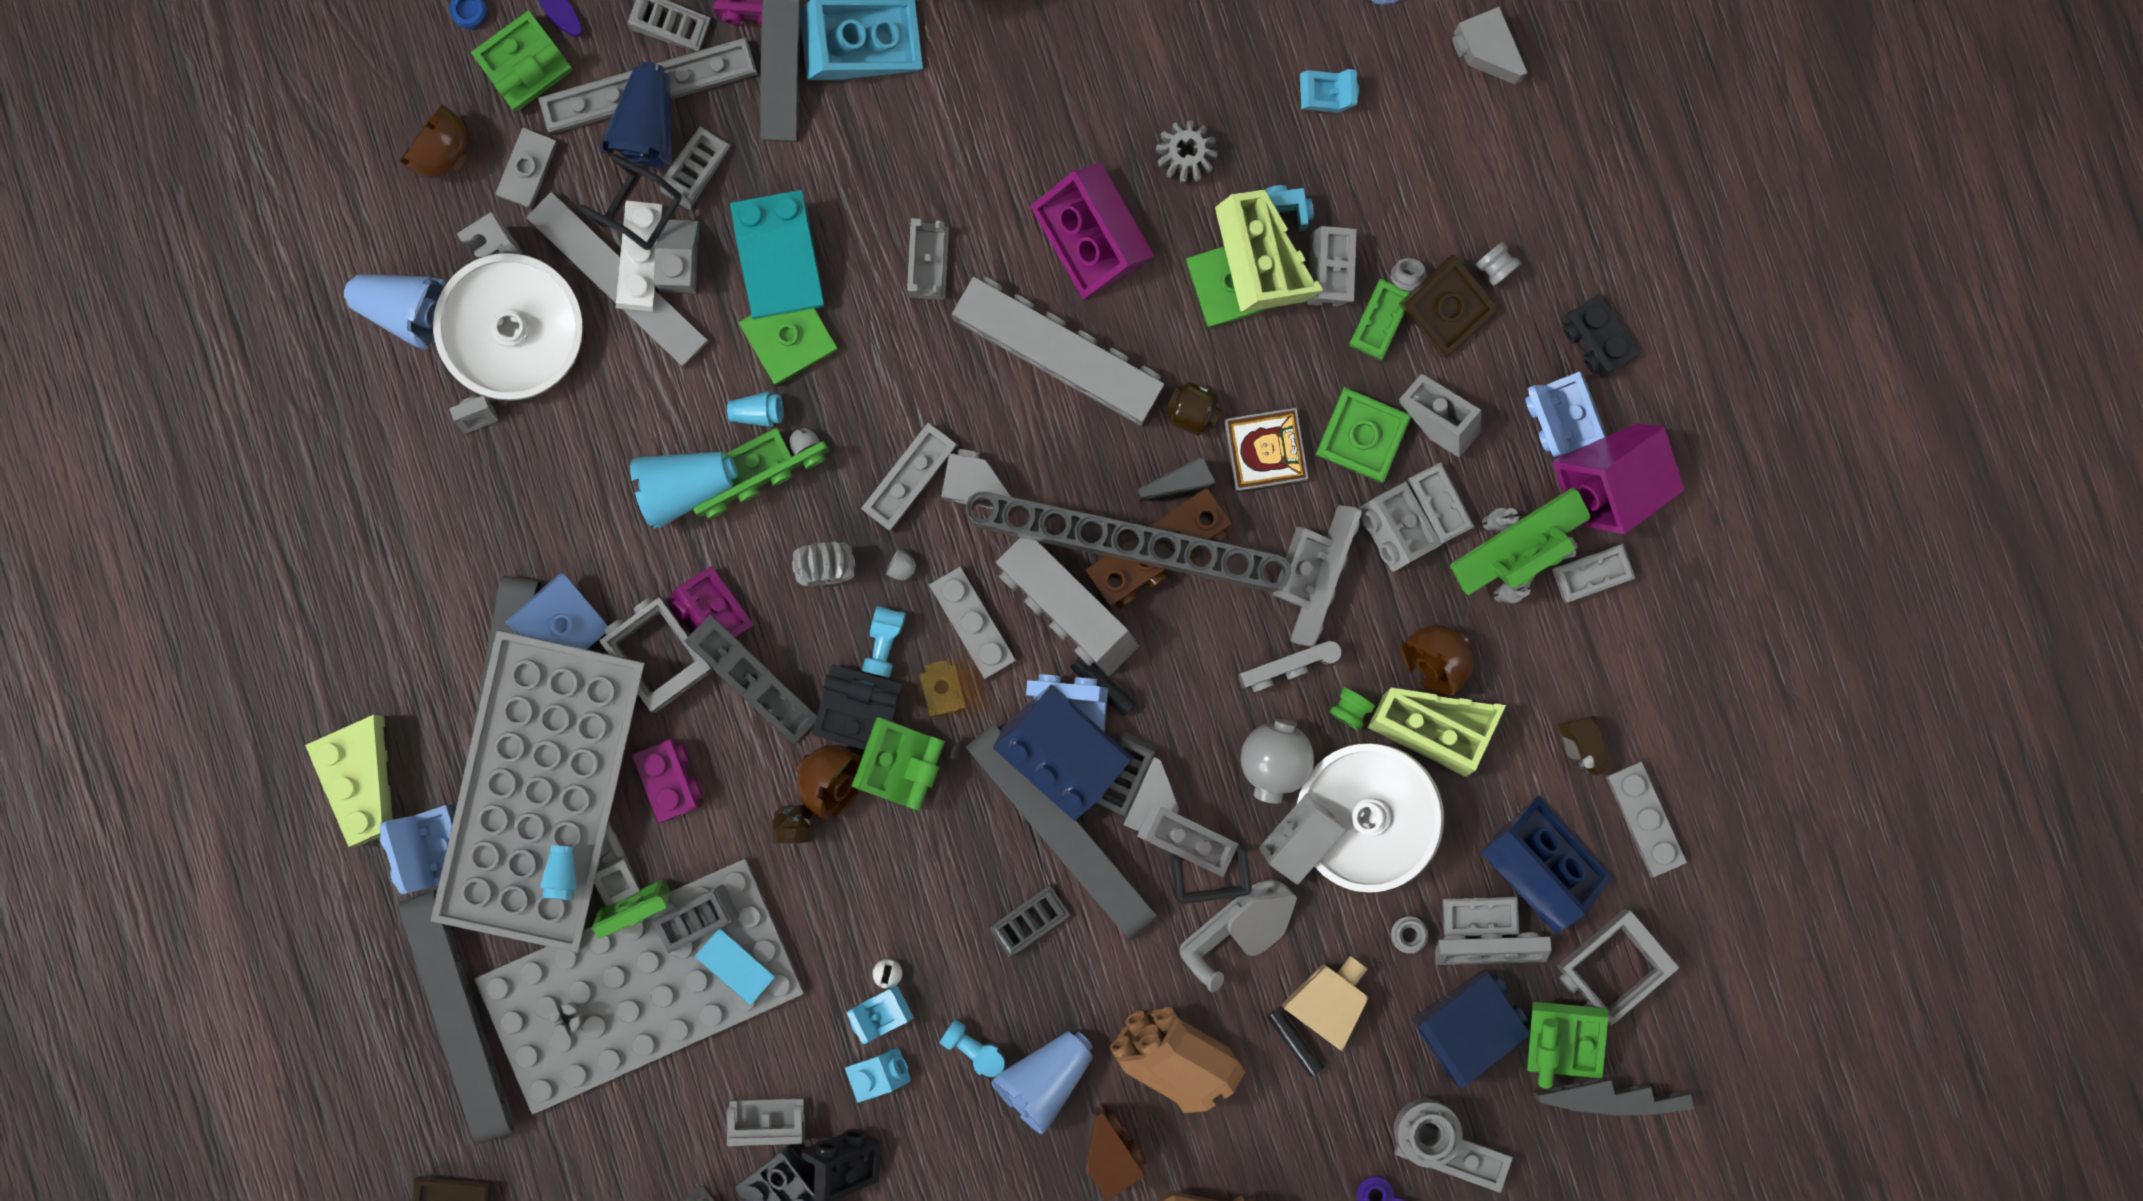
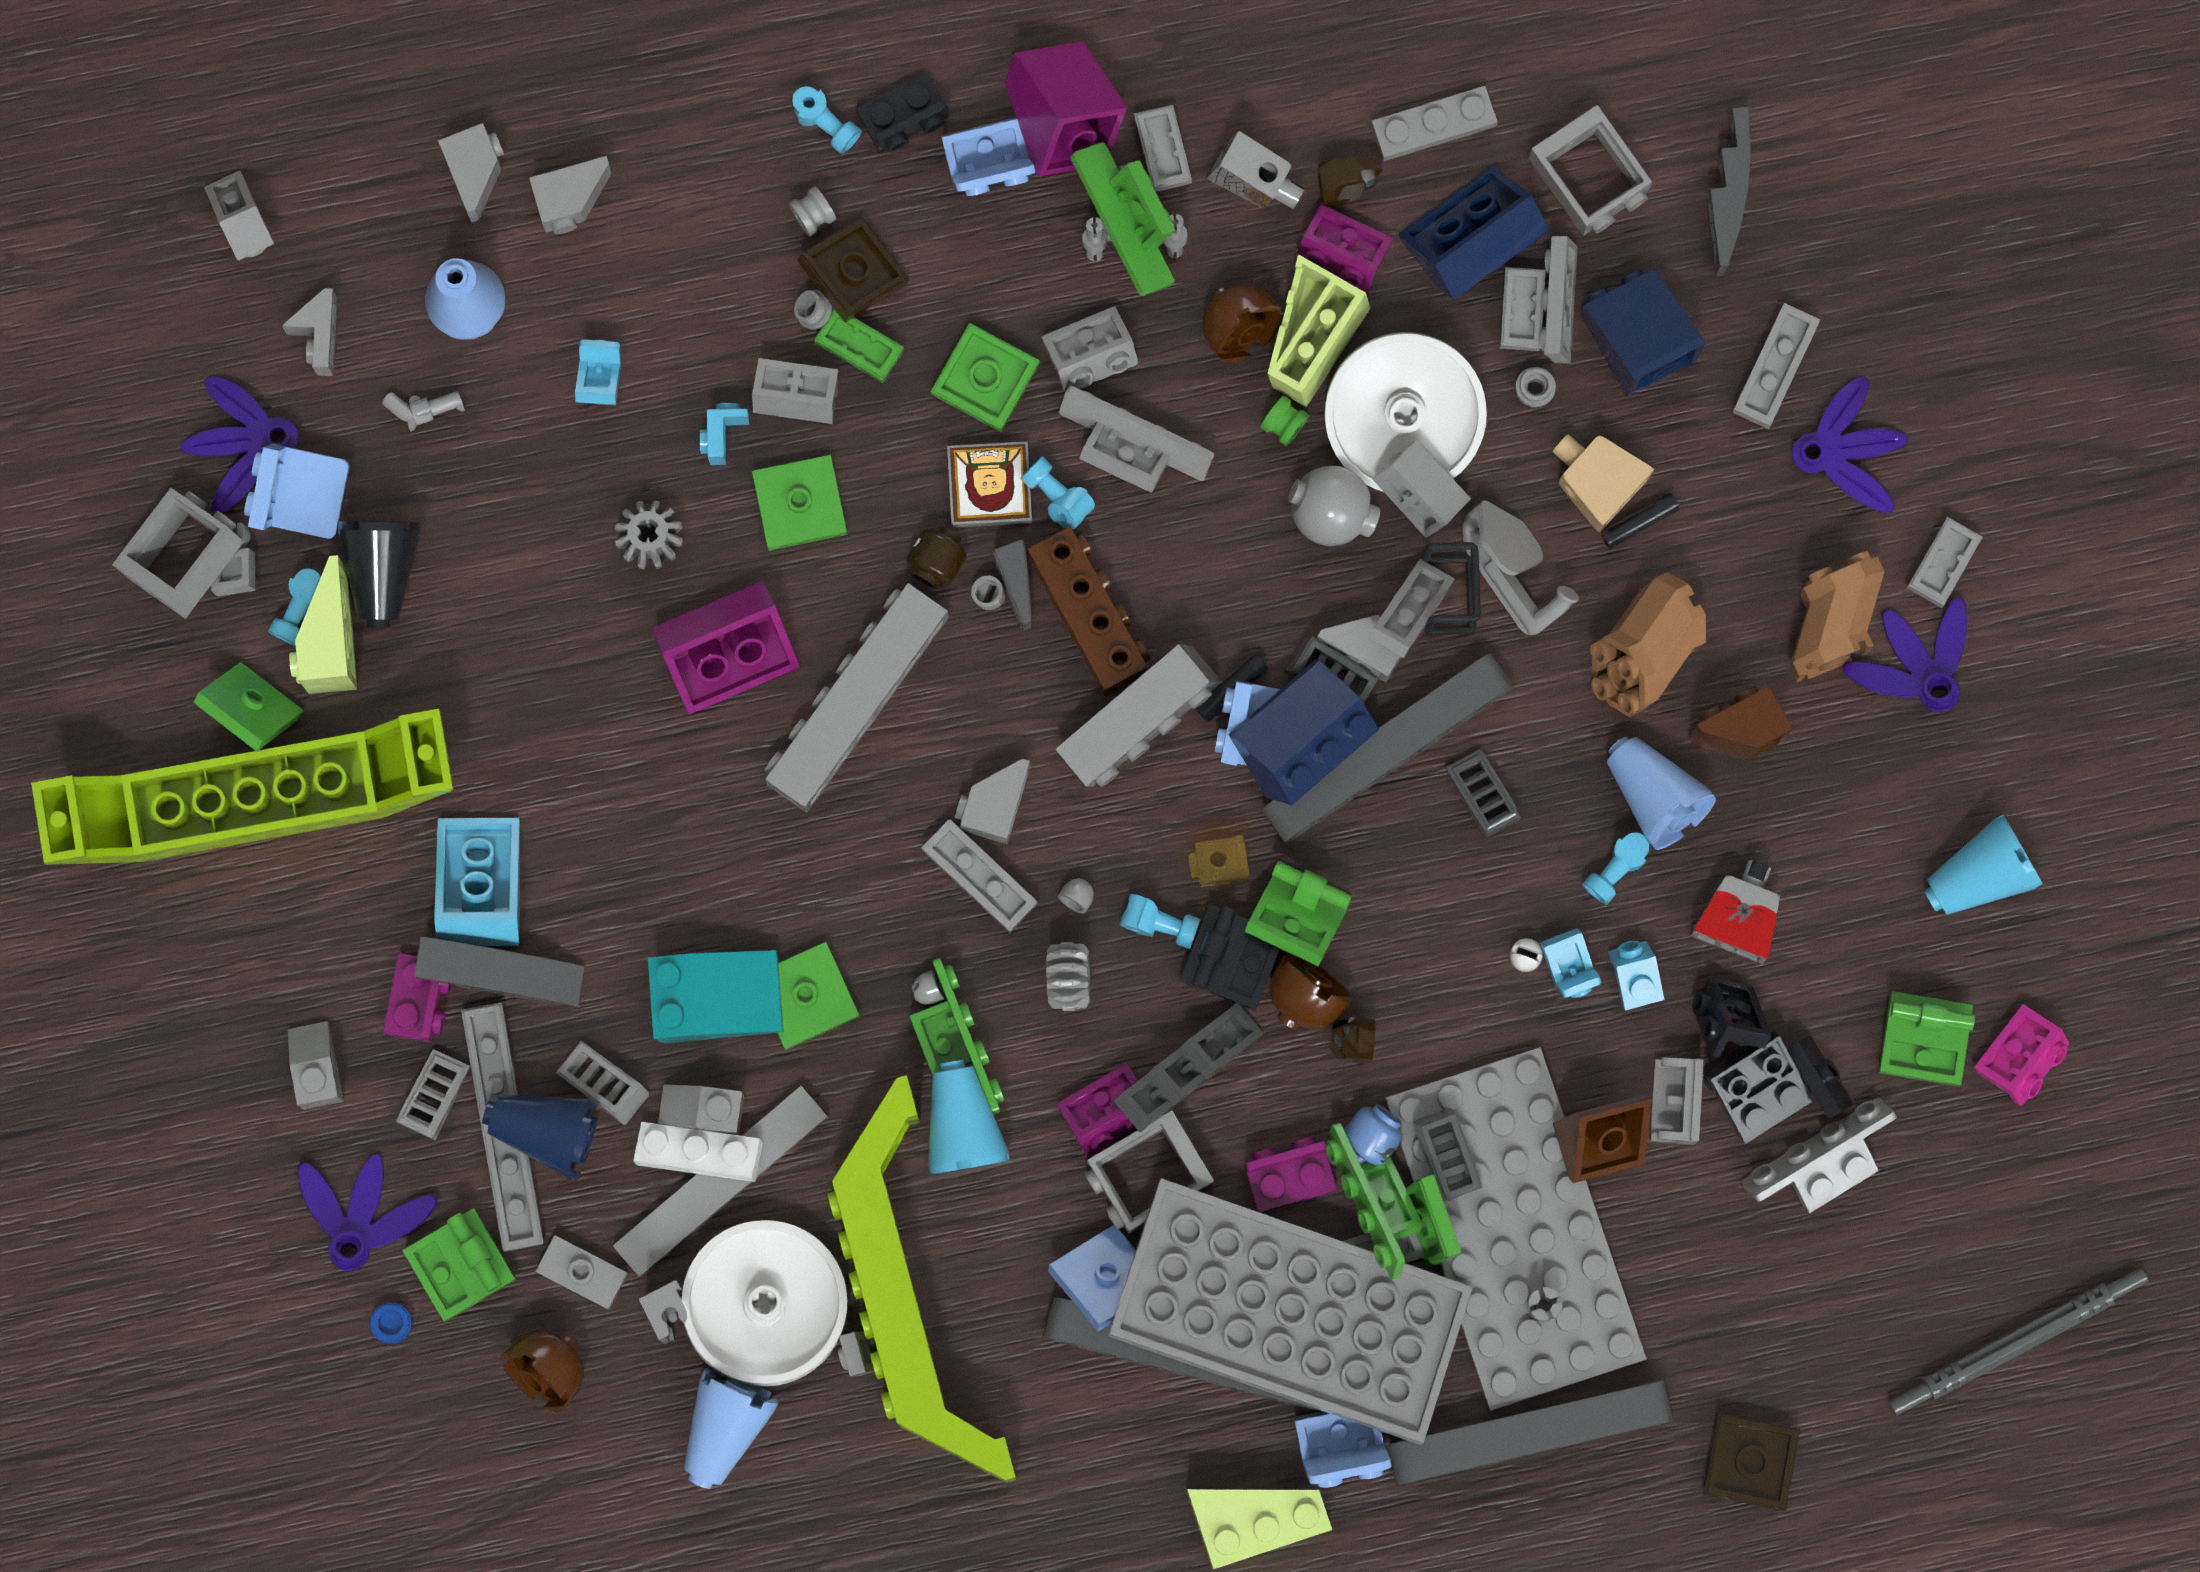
camera: 85 degrees left, 5 degrees down
(514, 439) = (889, 1296): none -> lime slope
(559, 874) = (1385, 1292): medium azure cone -> none
(632, 169) = (596, 1153): black piece -> none
(649, 863) = (1380, 1198): none -> bright green bracket
(708, 850) = (1374, 1134): none -> medium blue head
(724, 1059) = (1604, 1138): none -> reddish brown slope
(735, 966) = (1503, 1115): medium azure tile -> none
(757, 409) = (886, 1037): medium azure cone -> none
(927, 260) = (737, 832): light grey hinge -> none
(941, 1166) = (1741, 914): none -> torso
(972, 623) = (1148, 823): light grey plate -> none
(1111, 531) = (1081, 615): dark grey beam -> none
(1165, 452) = (982, 589): none -> light grey hinge
(1252, 520) = (1067, 505): none -> medium azure leg
(1260, 254) = (777, 462): yellowish green wedge -> none
(1292, 665) = (1230, 480): light grey plate -> none
(1440, 502) = (1068, 302): light grey plate -> none
(1442, 415) = (973, 288): light grey slope -> none
(1442, 1147) = (1752, 365): light grey piece -> none
(1518, 747) = (1344, 247): none -> magenta bracket
(1566, 1041) = (1665, 231): bright green plate -> none
(1583, 644) = (1239, 172): none -> light grey torso
(1592, 255) = (812, 110): none -> medium azure leg

